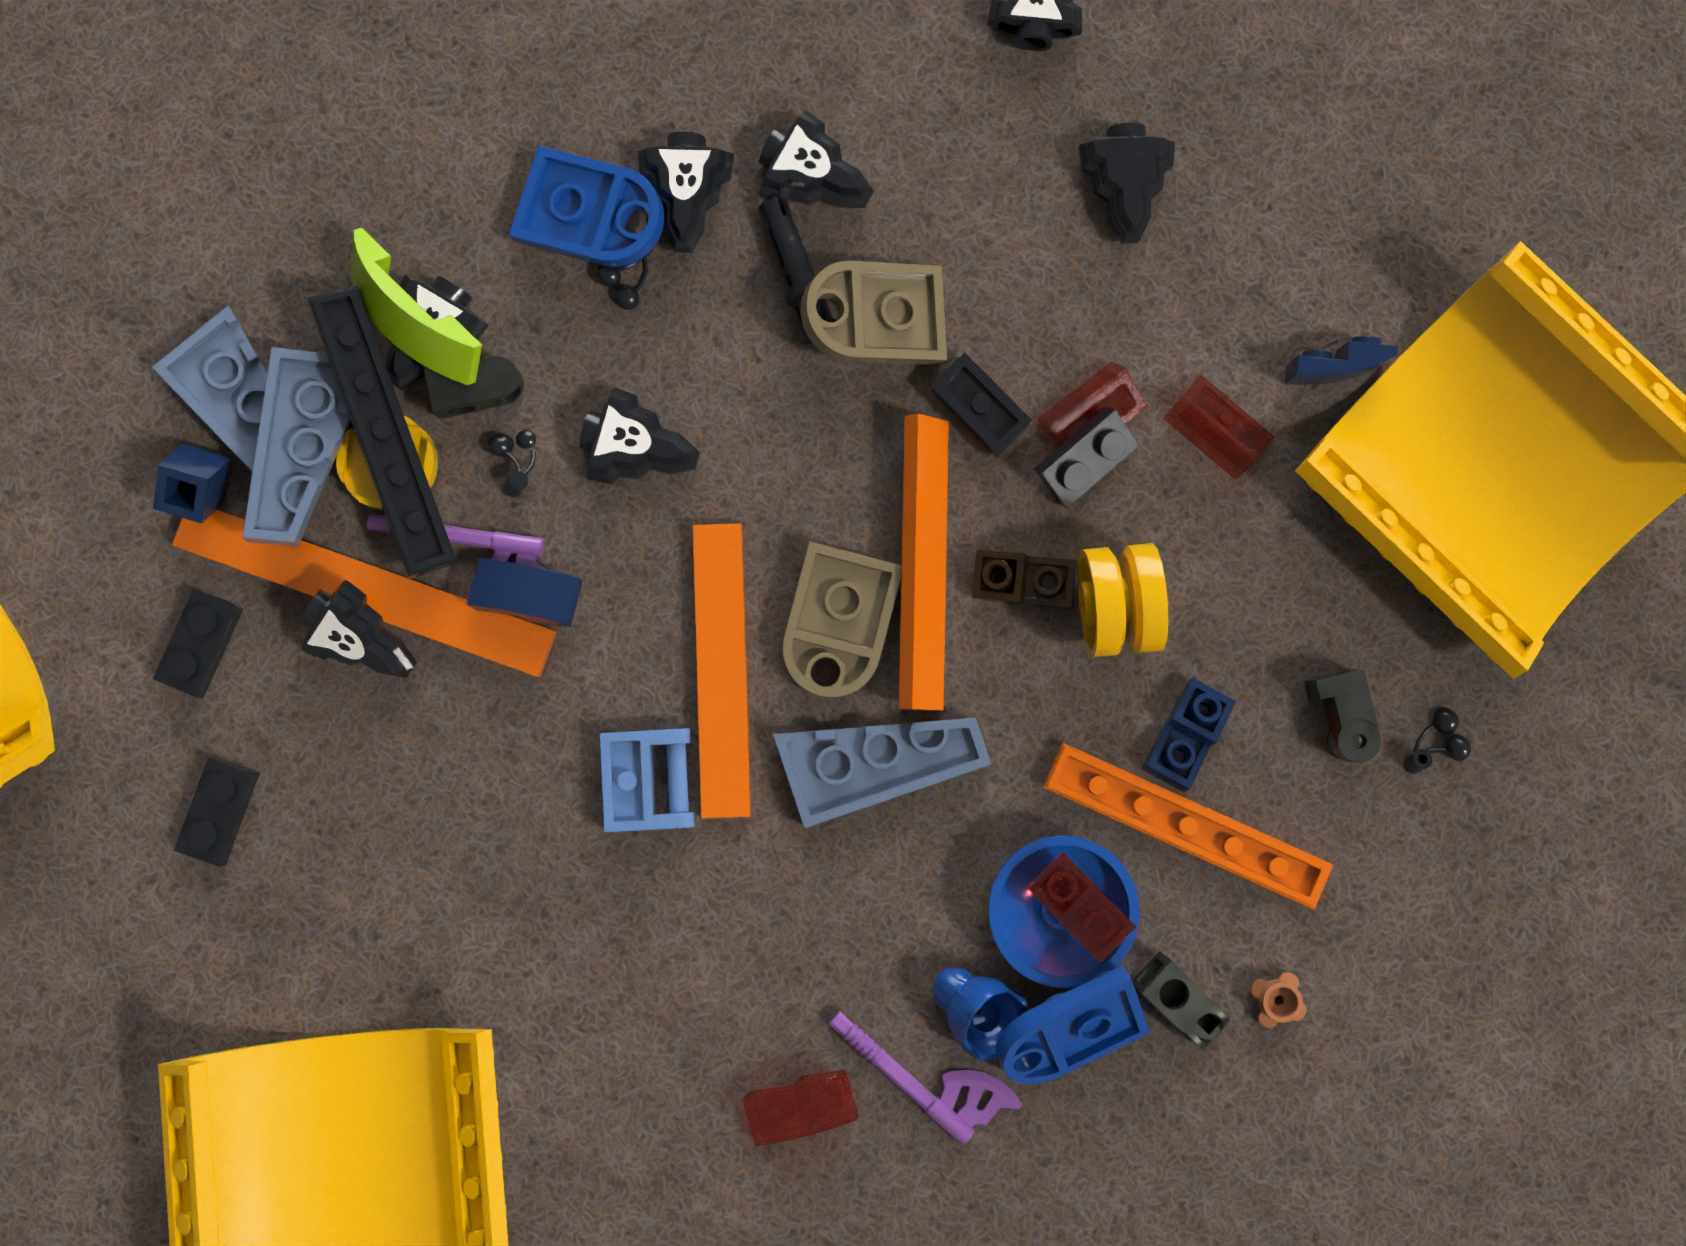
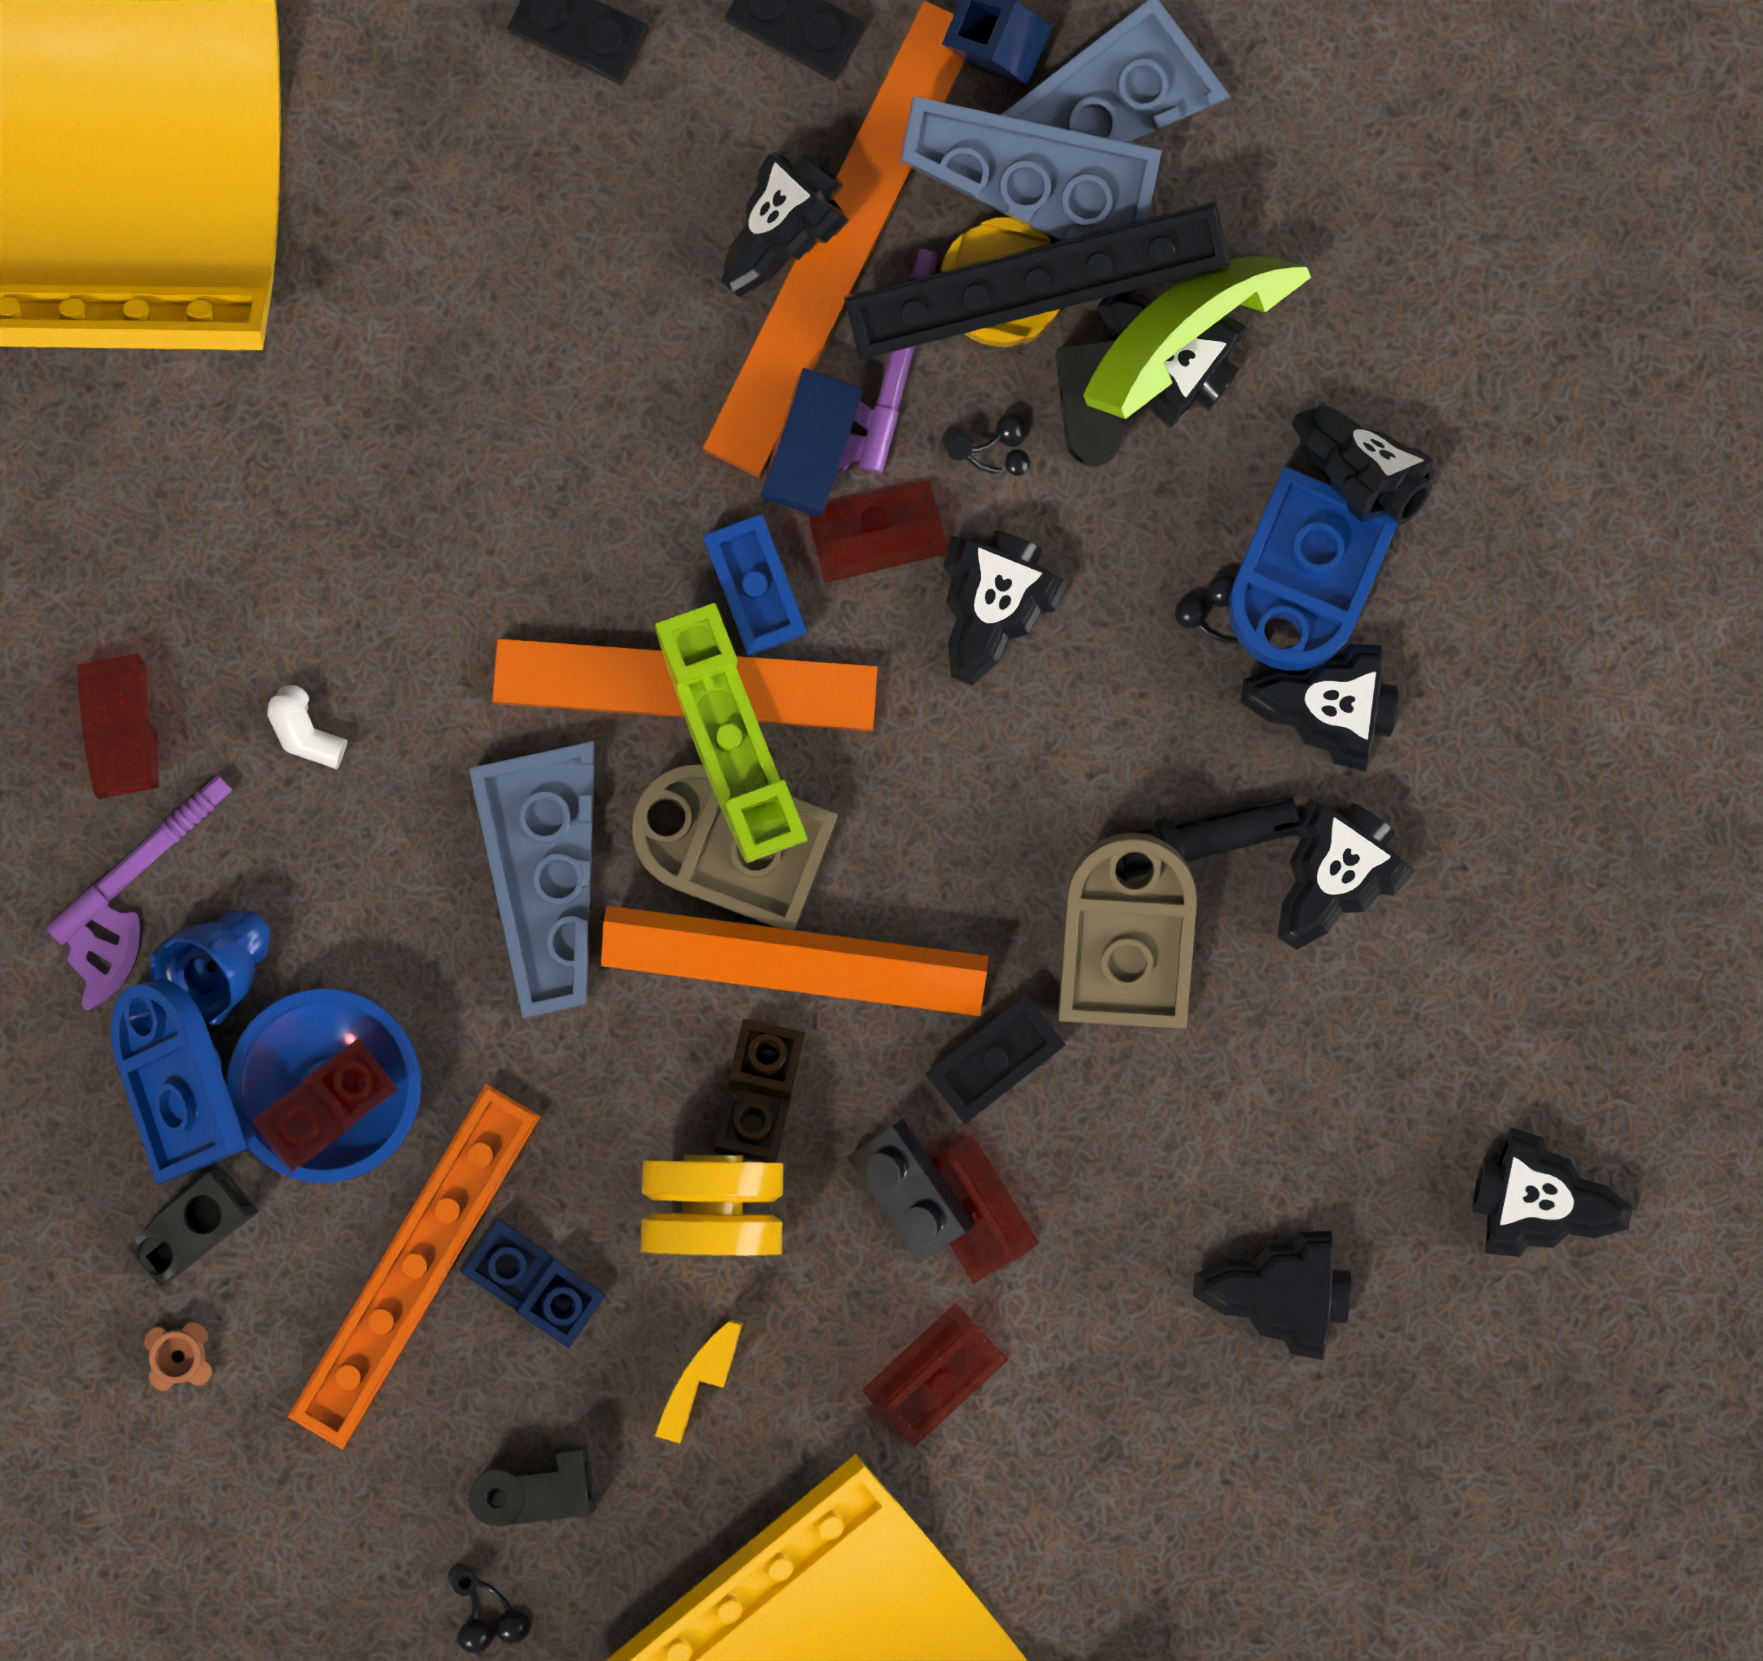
camera: 100 degrees right, 0 degrees up
(501, 176) = (1365, 465): none -> black rock
(589, 537) = (877, 532): none -> clear red slope
(630, 780) = (559, 553): medium blue plate -> none
(639, 624) = (755, 585): none -> blue plate
(758, 630) = (728, 733): none -> lime slope
(789, 967) = (296, 733): none -> white arm
(1237, 594) = (708, 1366): none -> yellow slope
(1350, 361) = (1002, 1564): dark blue slope -> none

